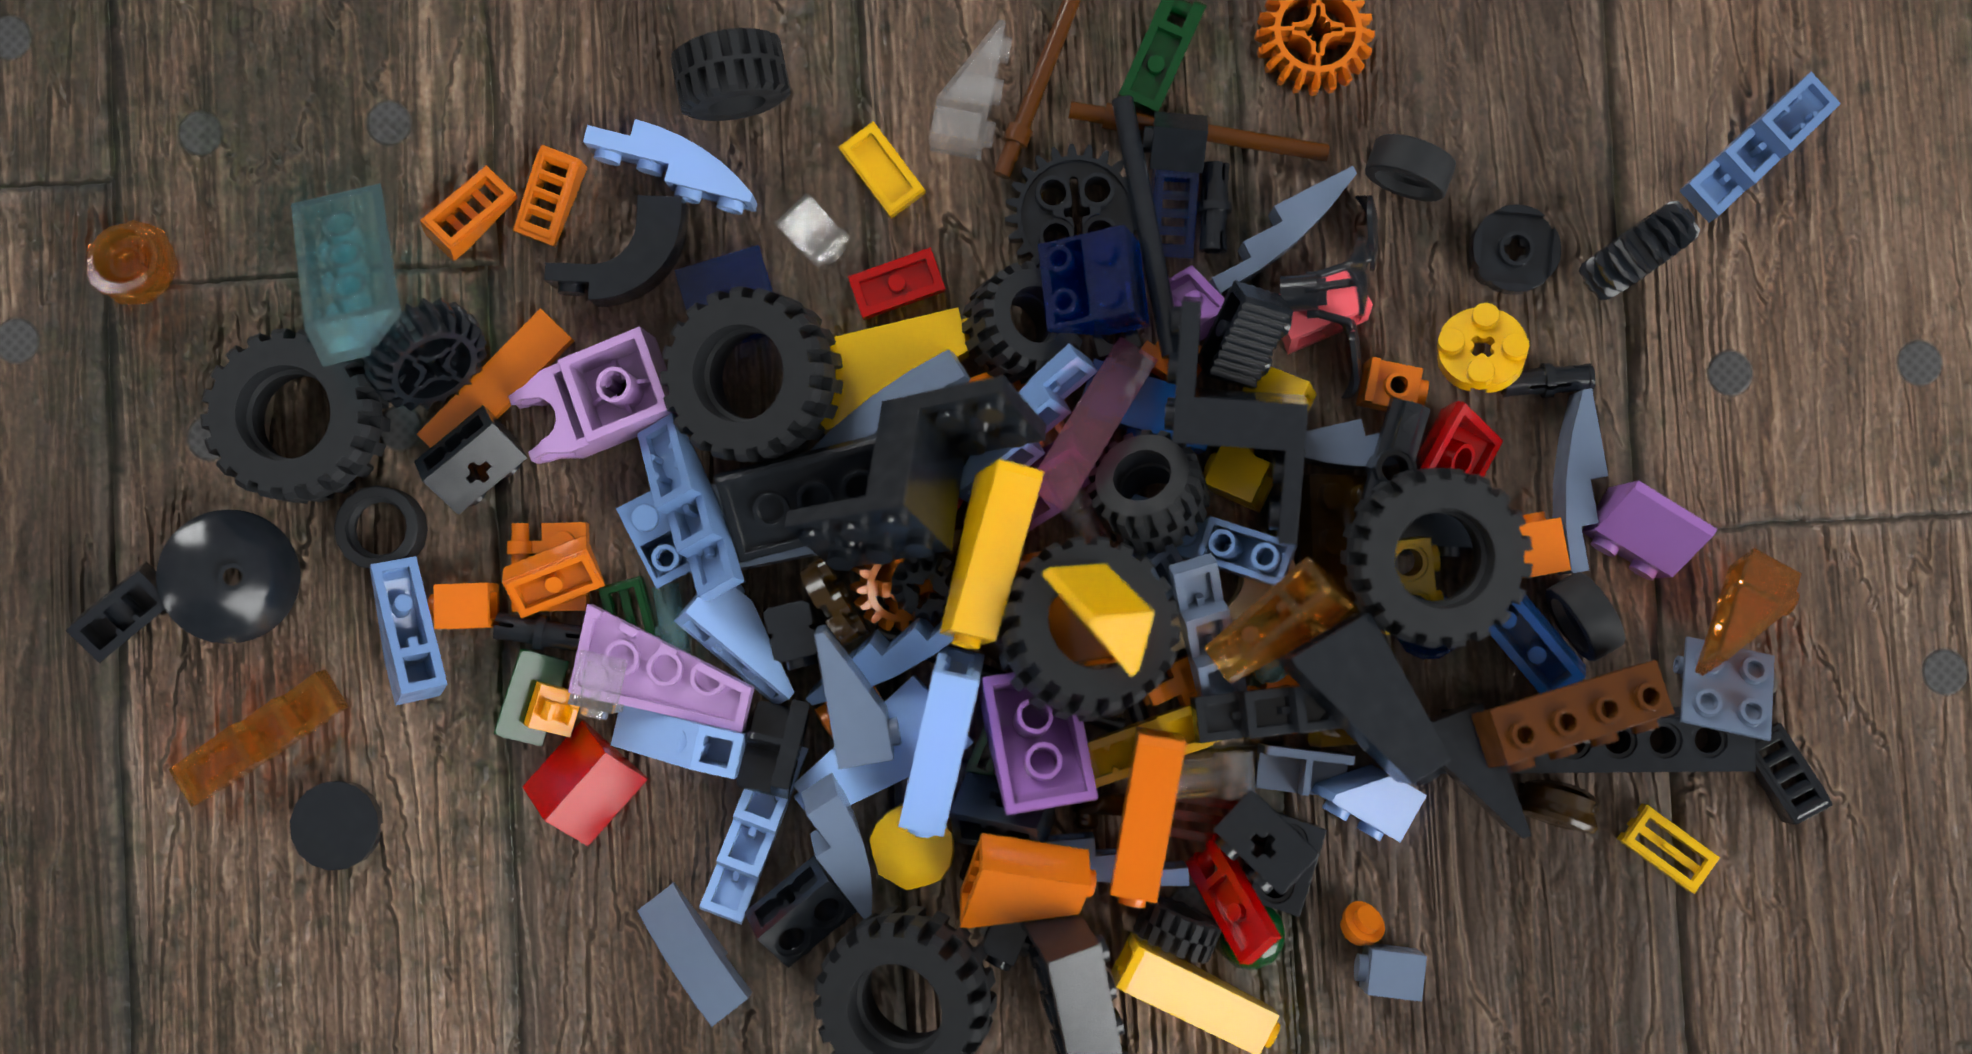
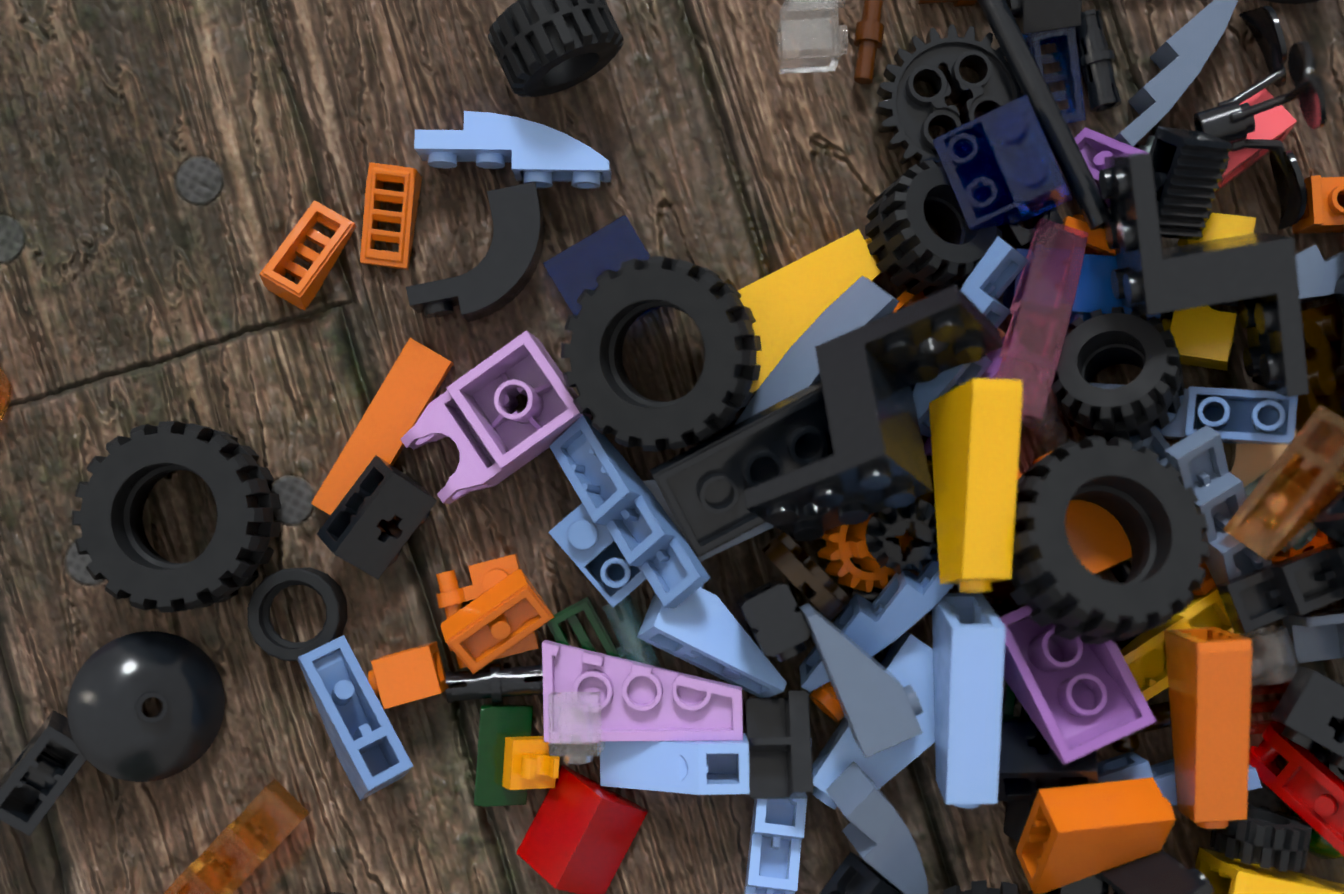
camera: 15 degrees left, 0 degrees up
(345, 272) = (196, 349): clear light blue slope -> none
(426, 355) = (300, 415): black gear -> none
(813, 232) = (681, 187): clear bracket -> none
(882, 170) = (734, 105): yellow tile -> none
(896, 283) = (782, 220): red plate -> none
(907, 858) = (947, 830): yellow hat -> none
(1105, 609) = (1134, 518): yellow slope -> none

